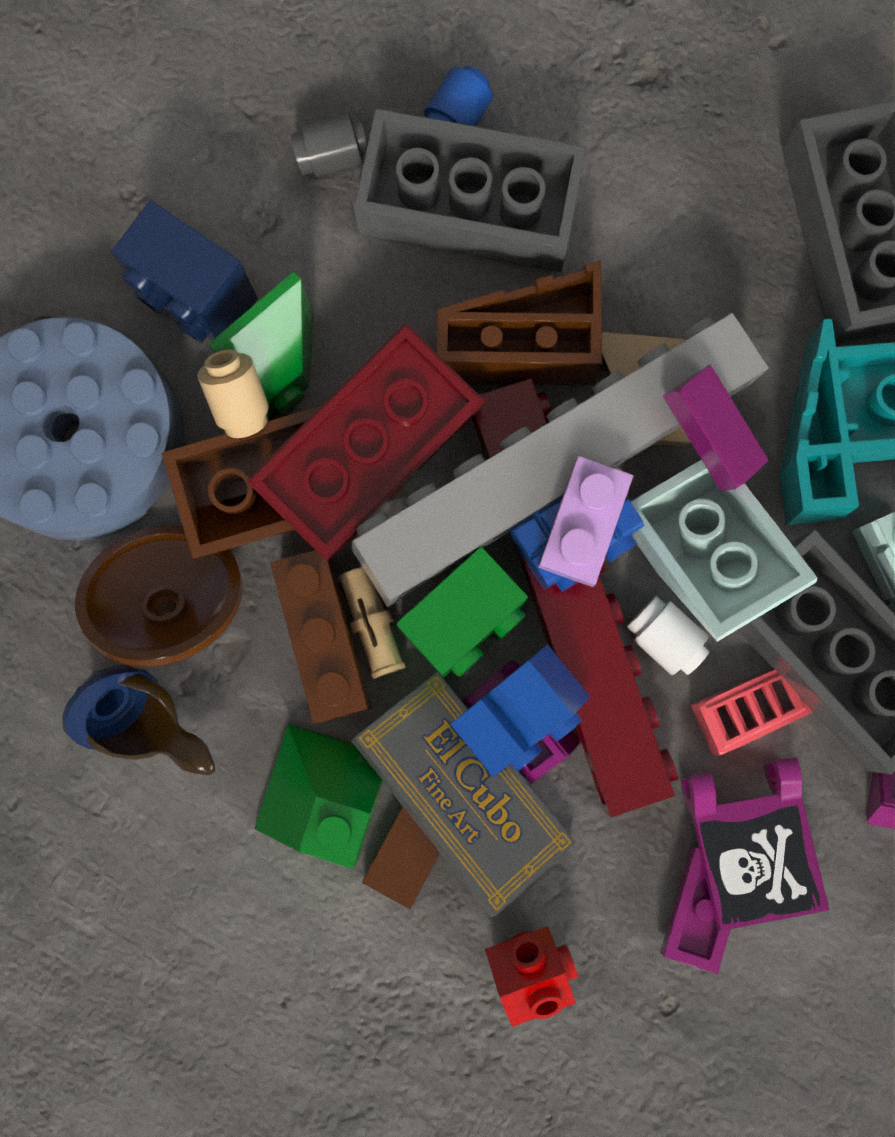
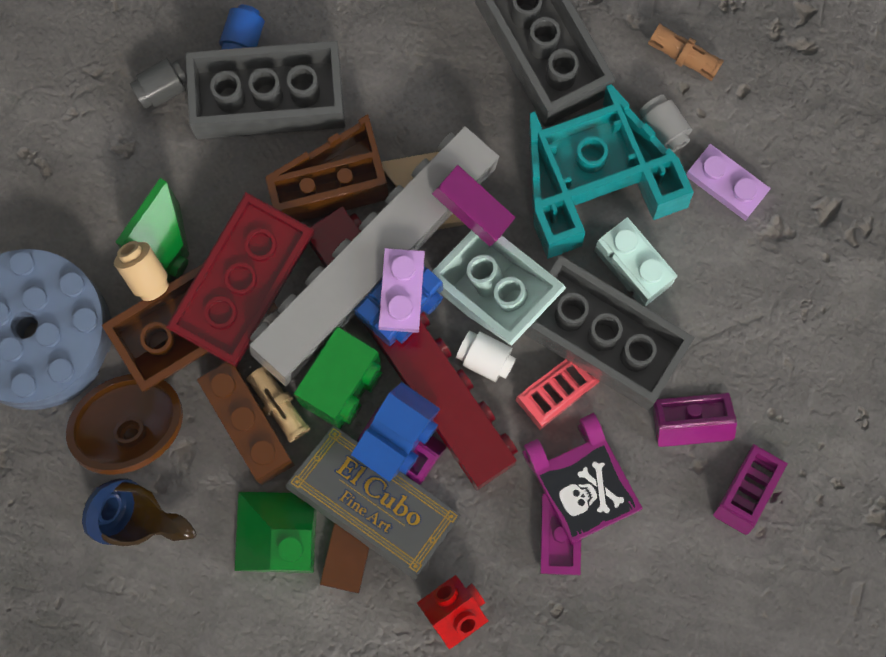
camera: 20 degrees left, 5 degrees down
(183, 273) = (83, 200): dark blue brick -> none

